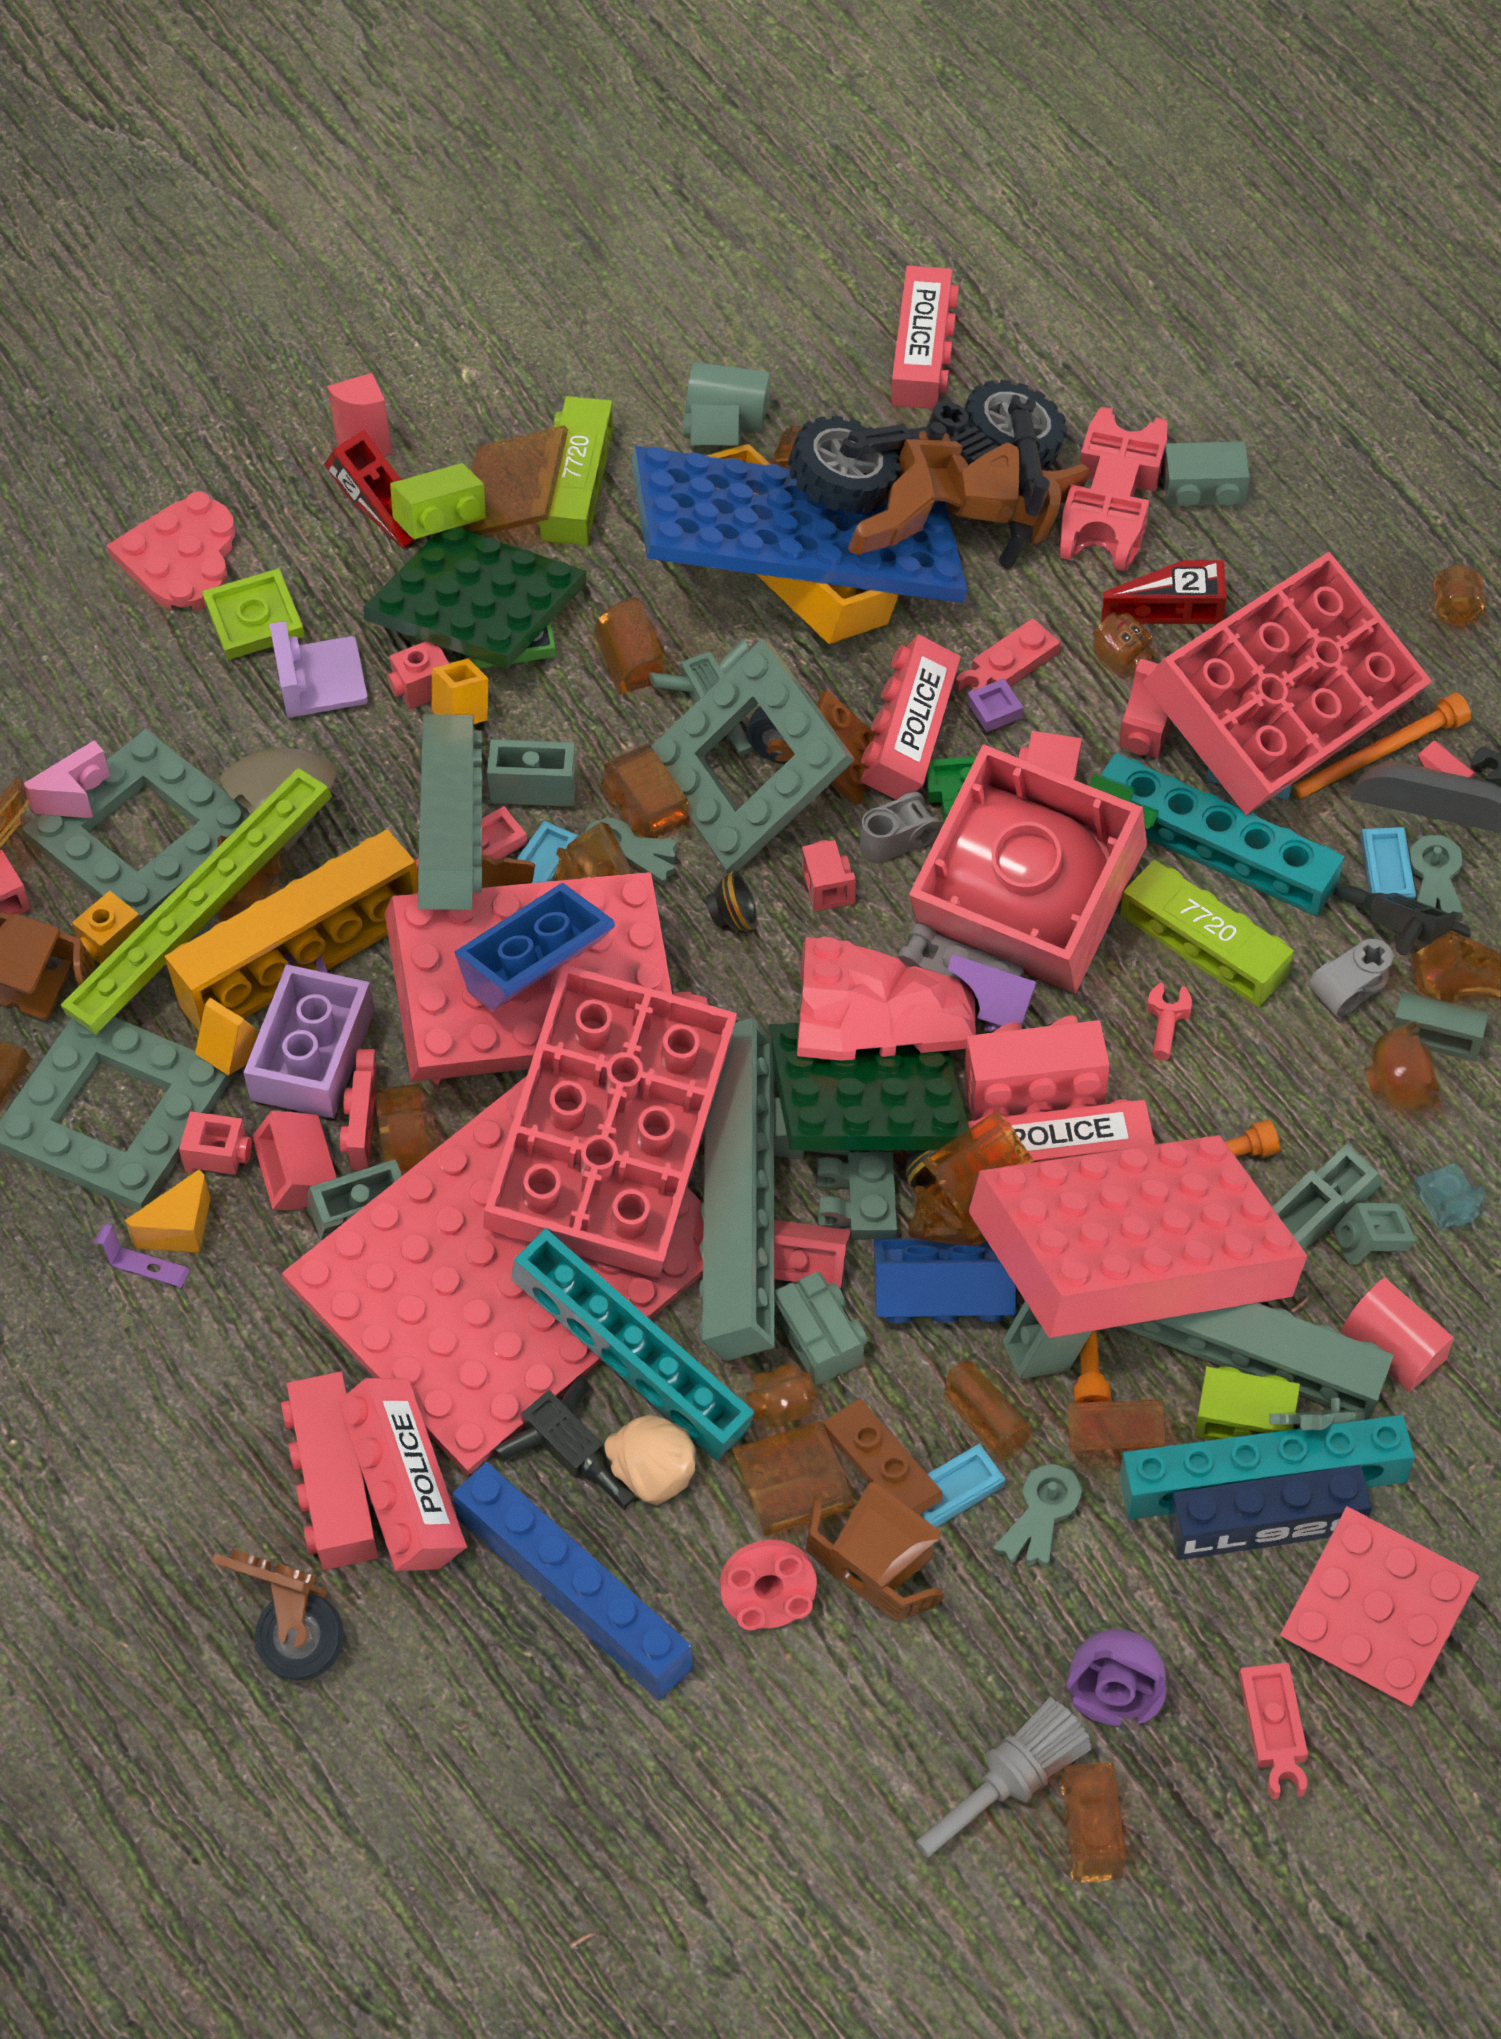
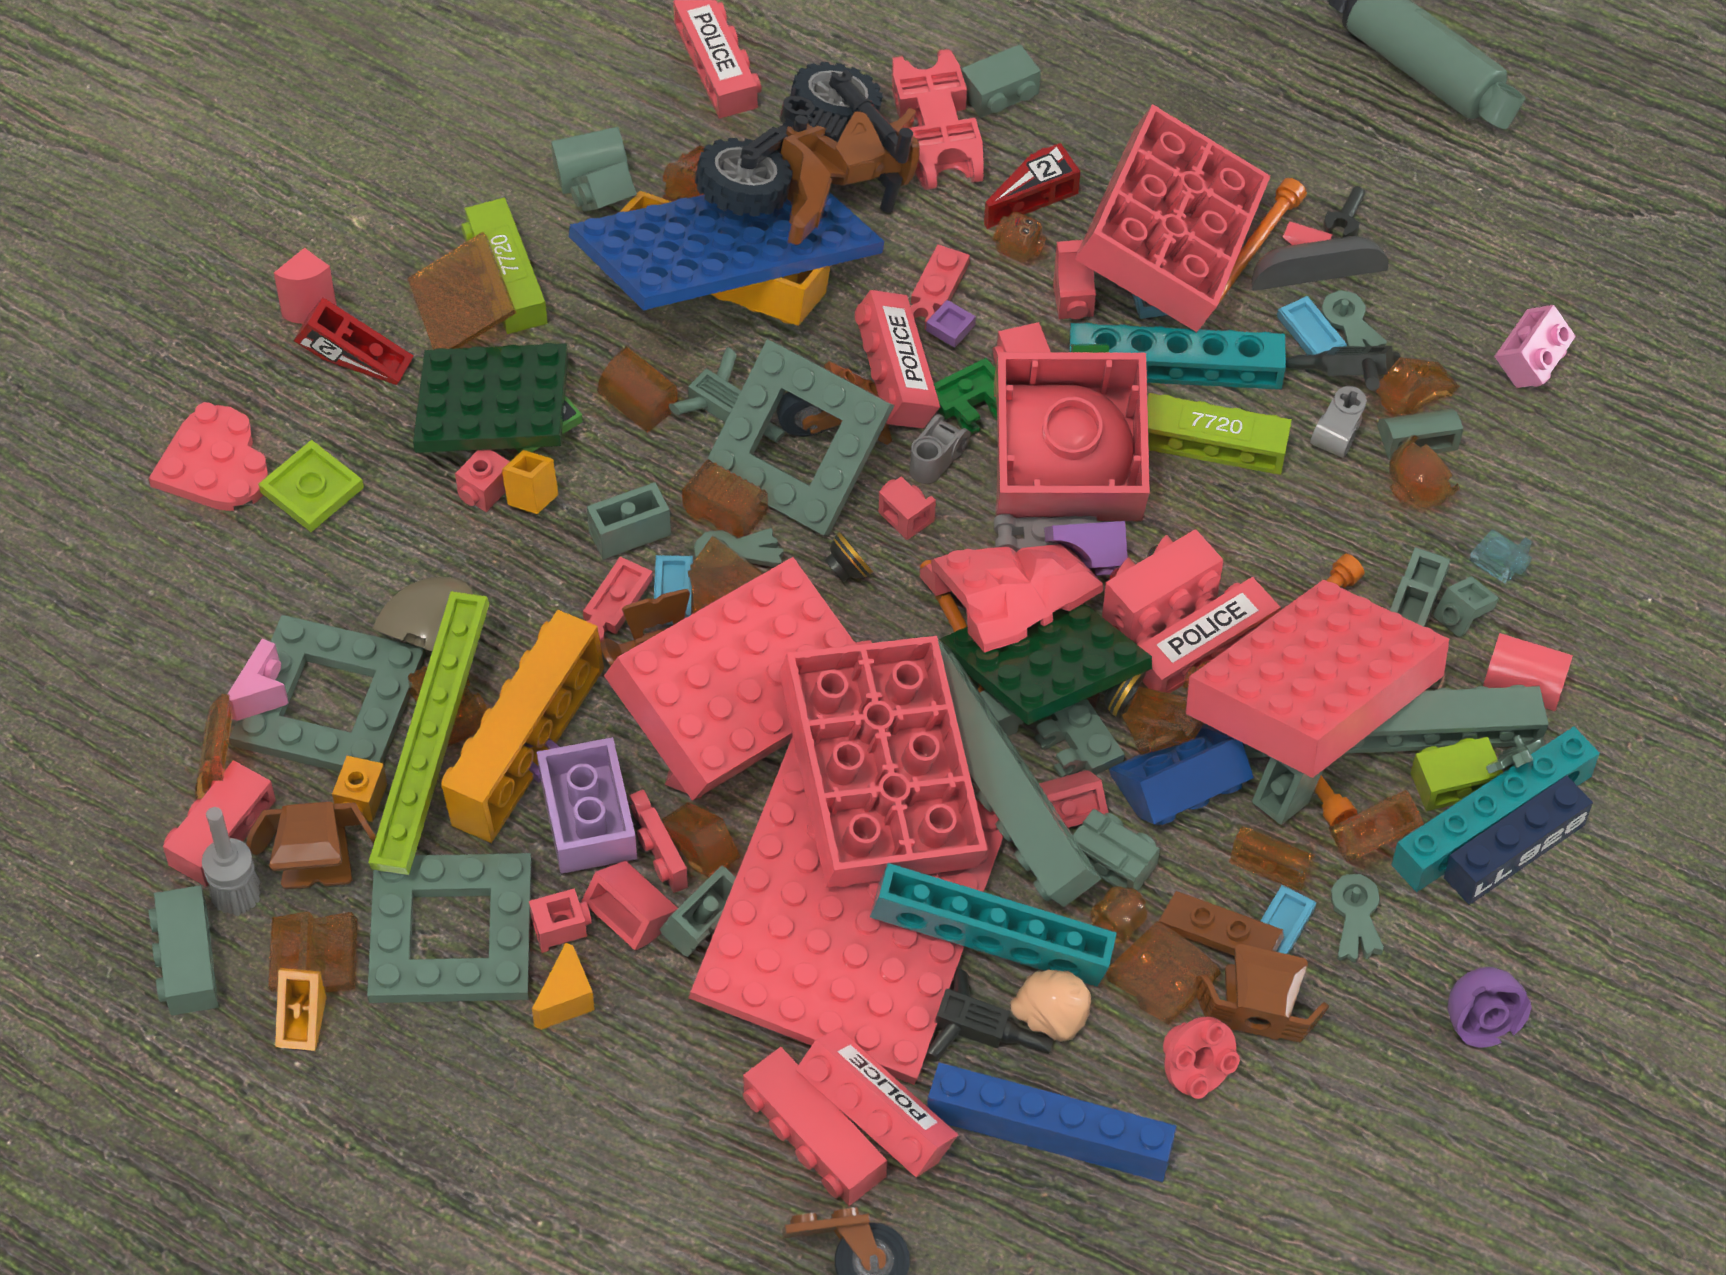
camera: 30 degrees left, 0 degrees up
(138, 1262) = (551, 1039): medium lavender piece -> none
(224, 1038) = (520, 831): light orange slope -> none
(317, 674) = (396, 512): lavender bracket -> none
(438, 501) = (414, 333): lime brick -> none
(450, 813) = (602, 576): sand green brick -> none
(530, 945) = (755, 650): blue slope -> none
(982, 1147) = (1164, 674): clear orange brick -> none
(1017, 1768) = (1456, 1103): light grey piece -> none
(1093, 1822) = (1531, 1117): clear orange brick -> none
(1167, 1016) = (1221, 508): coral bar -> none
(1275, 1724) = (1610, 990): coral plate -> none
(1379, 1606) = (1635, 870): coral plate -> none
(1458, 595) = (1243, 103): clear orange piece -> none

